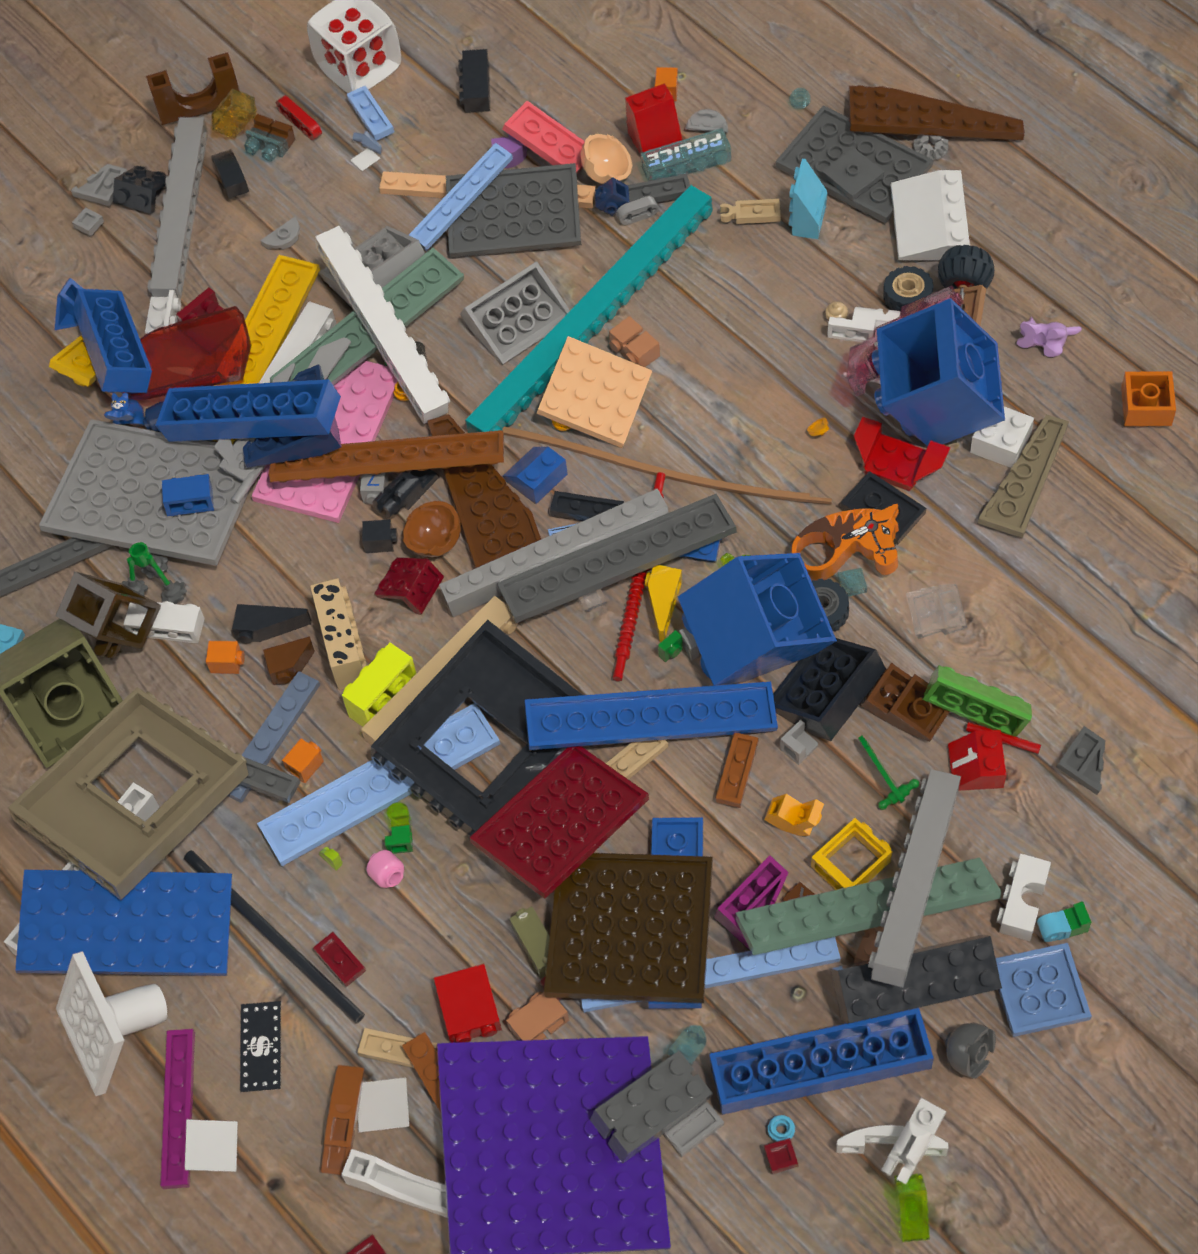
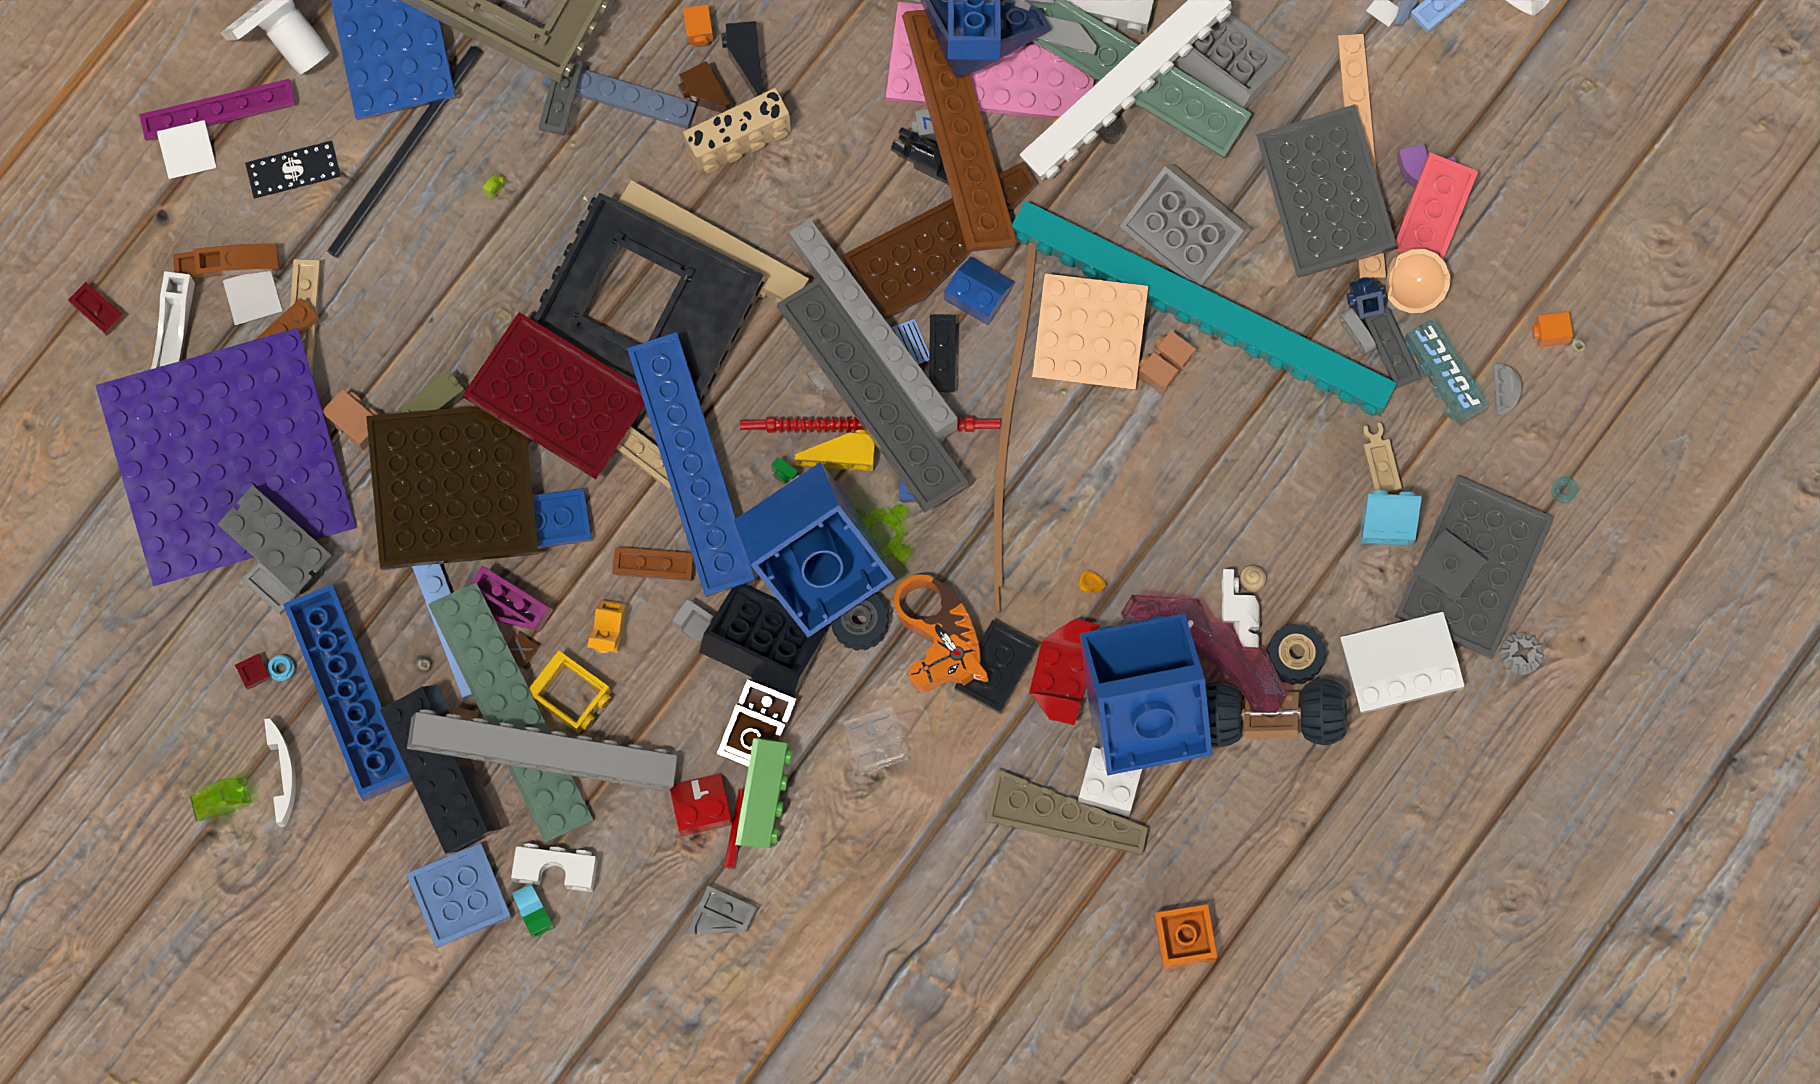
camera: 75 degrees right, 15 degrees up
(303, 760) = (593, 133): orange brick -> none
(339, 959) = (387, 220): dark red plate -> none
(369, 790) = (565, 200): light blue plate -> none
(378, 536) = (869, 144): black brick -> none
(378, 683) = (683, 185): neon yellow brick -> none
(385, 869) = (487, 241): bright pink head -> none
(401, 829) = (534, 246): leg -> none
(412, 581) = (817, 190): dark red bracket -> none
(432, 529) = (878, 196): dark orange cylinder -> none
(461, 196) = (1324, 128): light blue plate -> none
(467, 1004) = (358, 351): red brick -> none
(475, 81) = (1517, 107): black brick -> none
(652, 119) = (1479, 324): red slope -> none
(690, 1043) = (347, 566): clear light blue plate -> none
(853, 581) = (898, 648): clear light blue plate -> none
(897, 793) = (652, 727): green piece -> none
(909, 113) = (1561, 619): reddish brown wing -> none
(914, 1139) = (273, 787): white plate -> none
(969, 1047) = (382, 832): dark grey cylinder -> none
(1049, 336) = (1258, 820): lavender animal -> none

